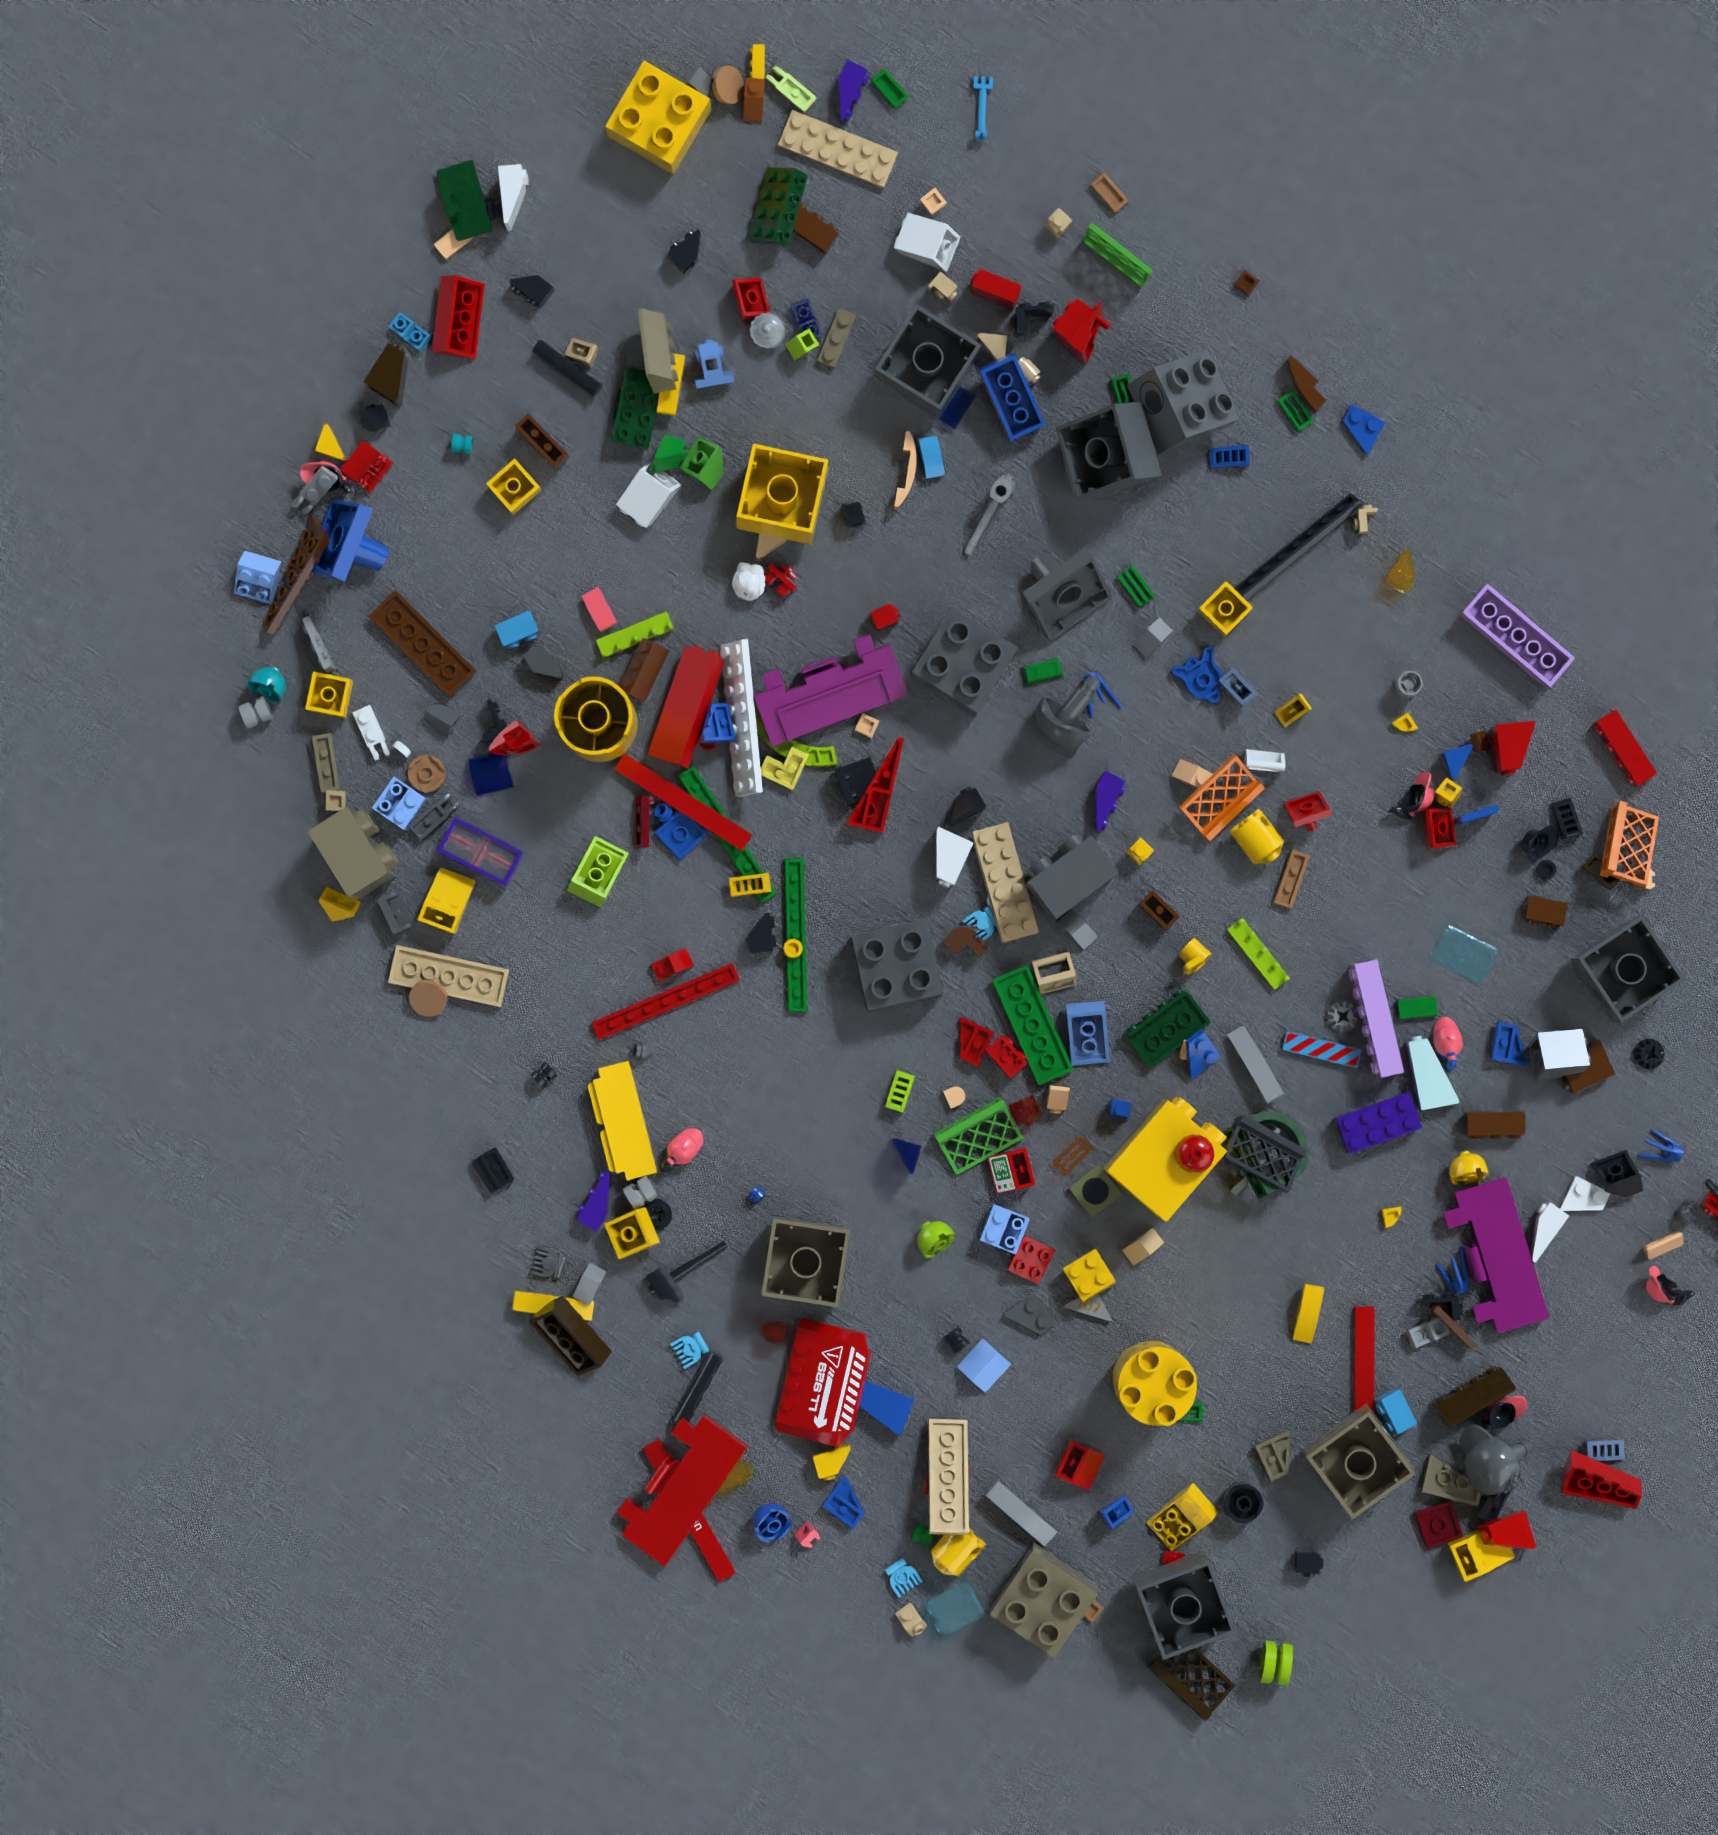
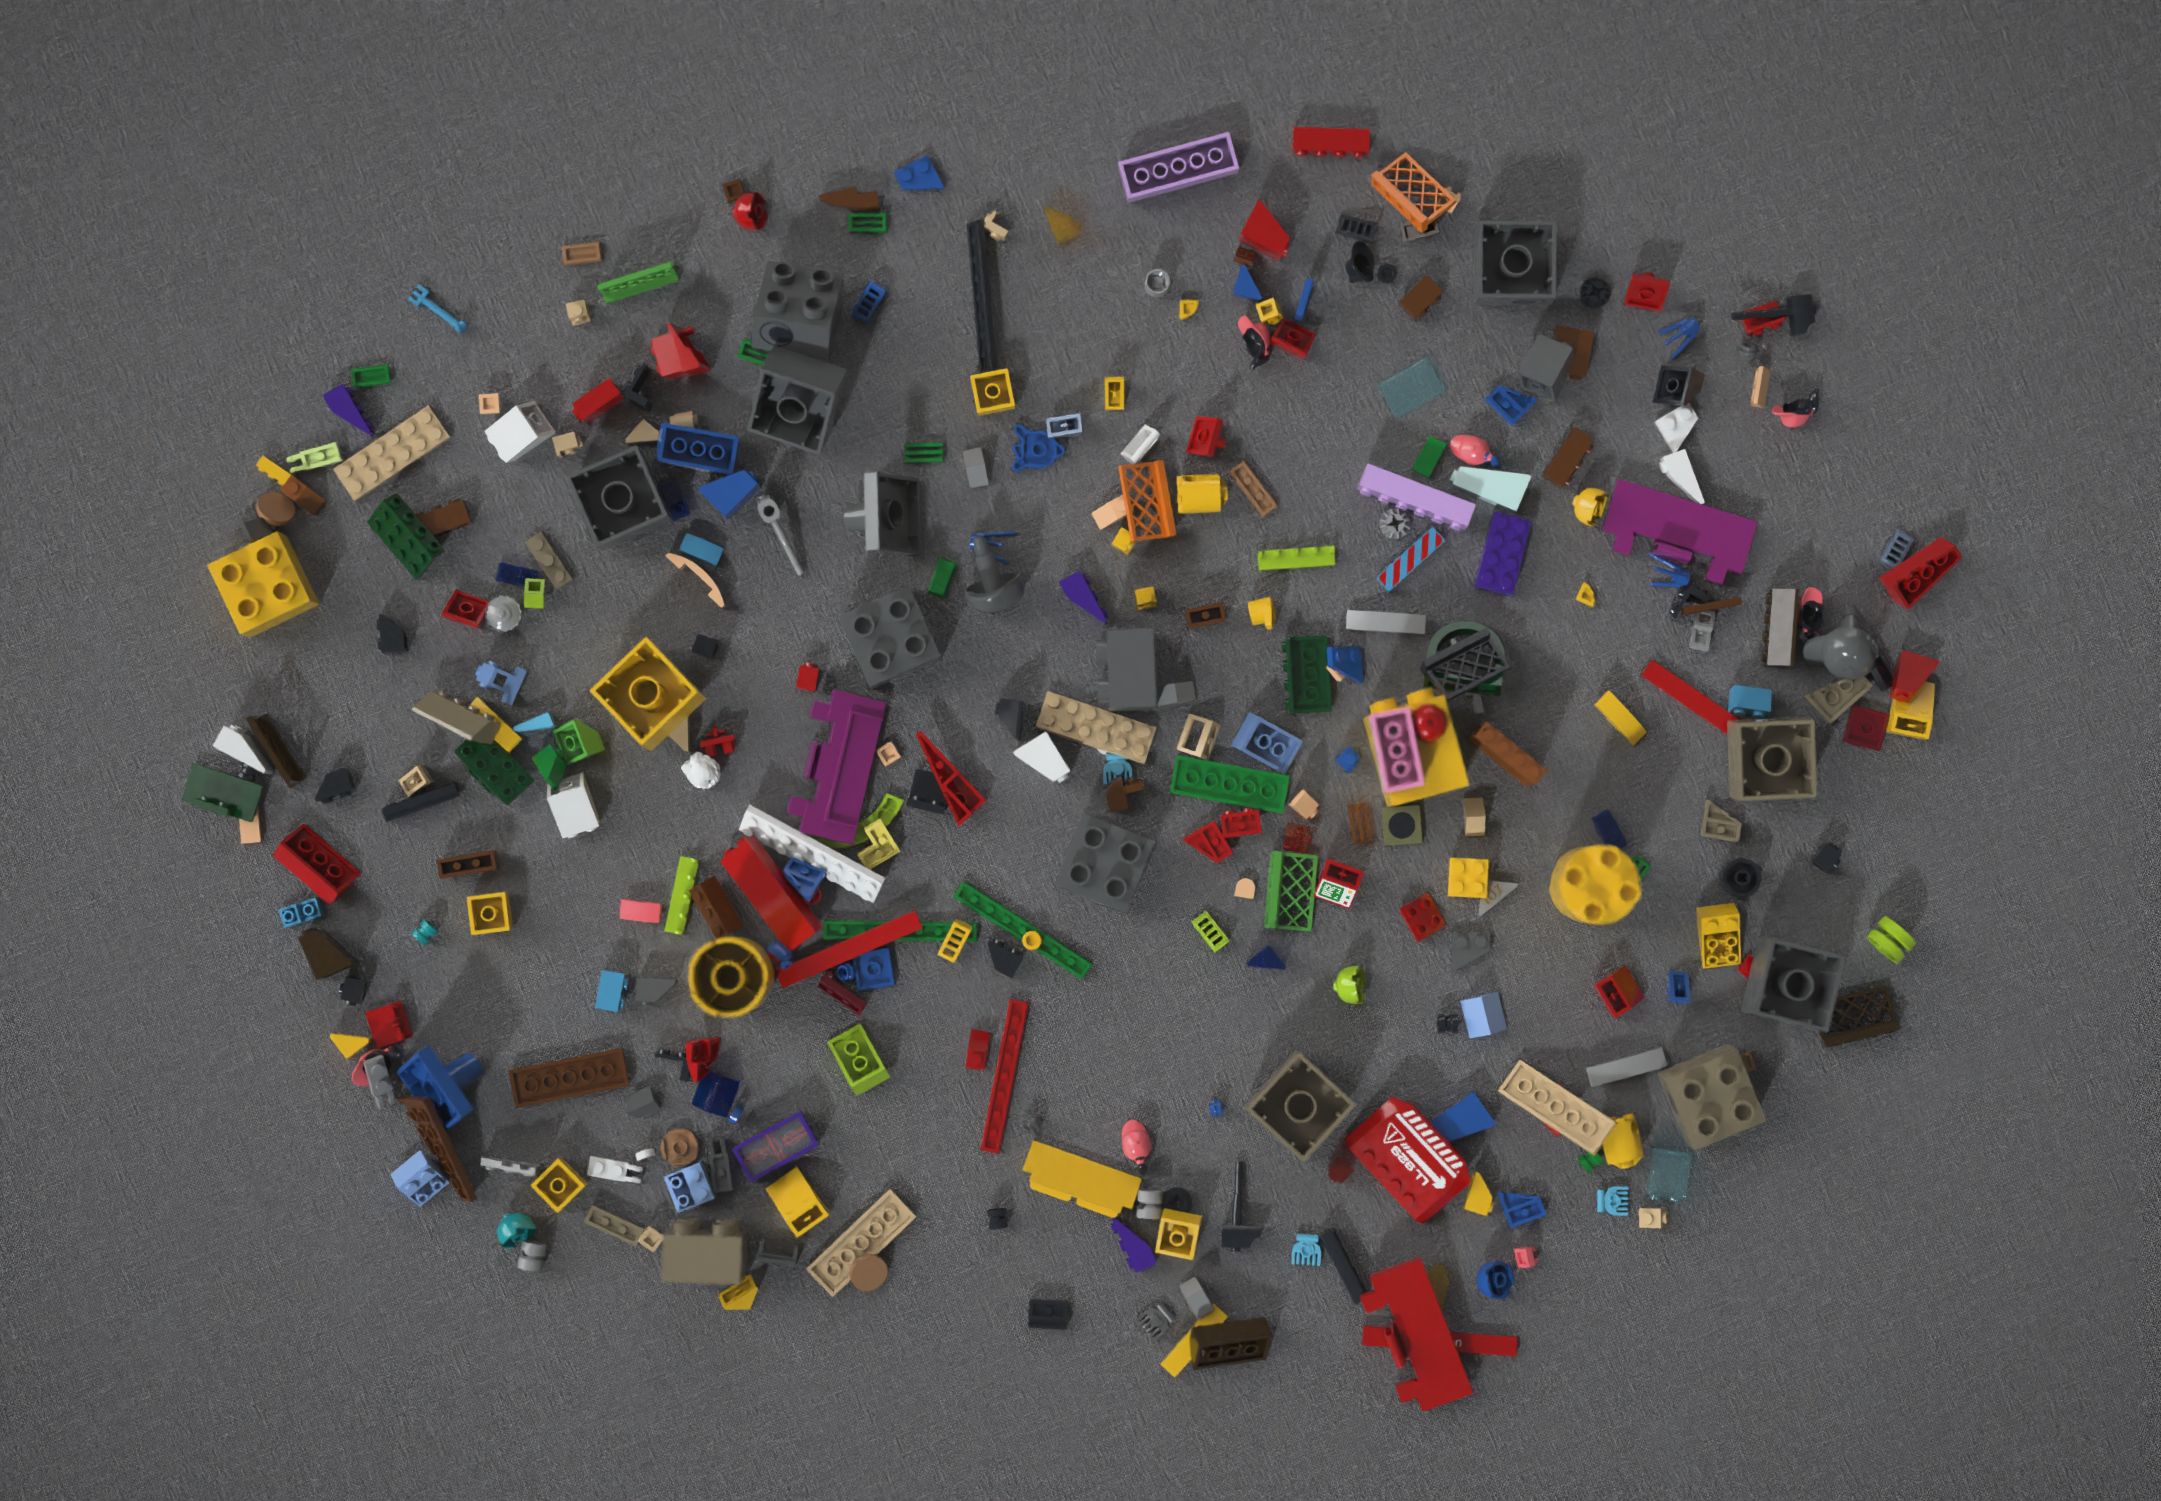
camera: 55 degrees left, 0 degrees up
(485, 800) = (735, 1114): none -> blue tile
(530, 221) = (276, 749): none -> dark brown fence
(639, 748) = (779, 955): none -> blue head
(697, 420) = (540, 722): none -> medium azure slope
(995, 449) = (731, 491): none -> blue slope
(1004, 1229) = (1382, 922): light blue slope -> none
(1154, 1141) = (1396, 750): none -> bright pink brick
(1174, 800) = (1123, 541): none -> yellow brick
(1208, 1366) = (1609, 830): none -> clear blue slope
(1213, 1238) = (1507, 754): none -> dark orange panel
(1237, 307) = (749, 211): none -> red cylinder
(1678, 1095) = (1646, 291): none -> red tile

